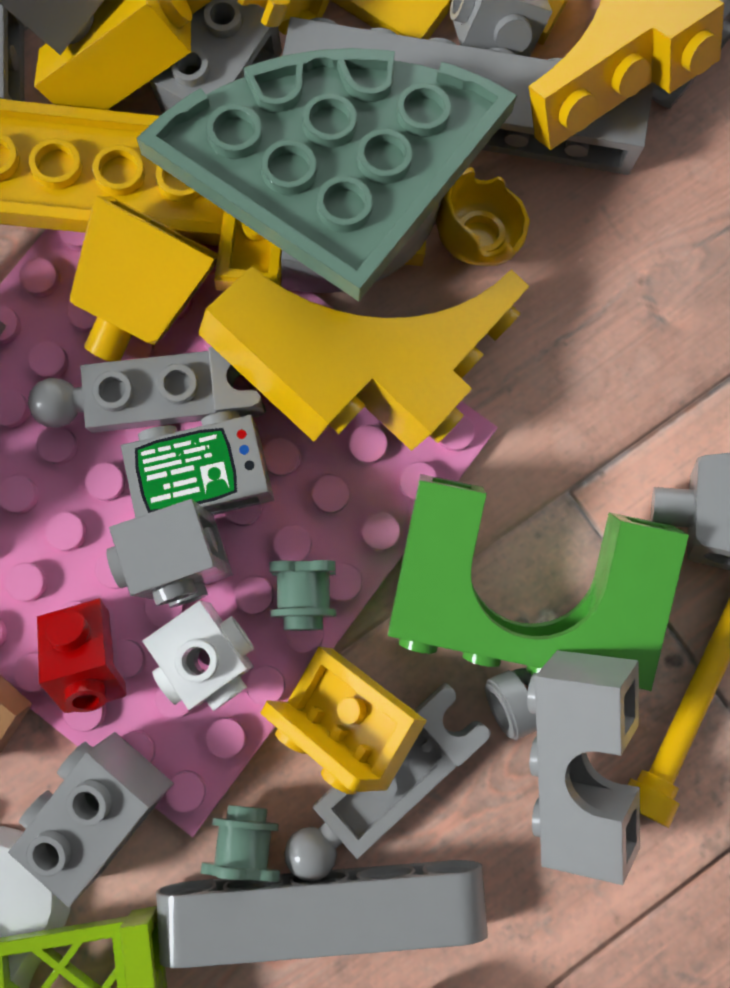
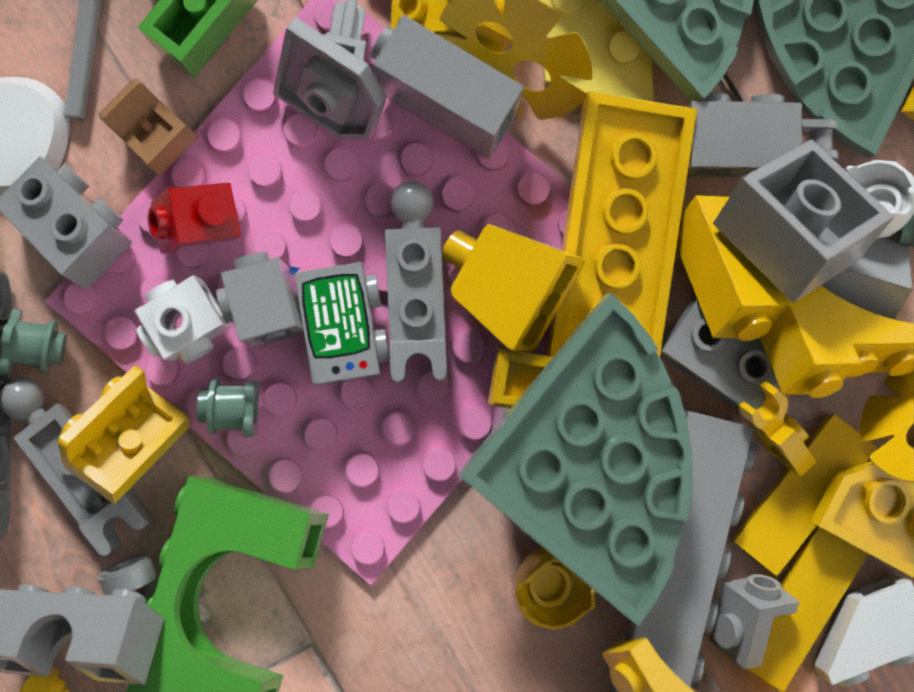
camera: 85 degrees right, 5 degrees up
(333, 363) = (418, 441): yellow arch -> none

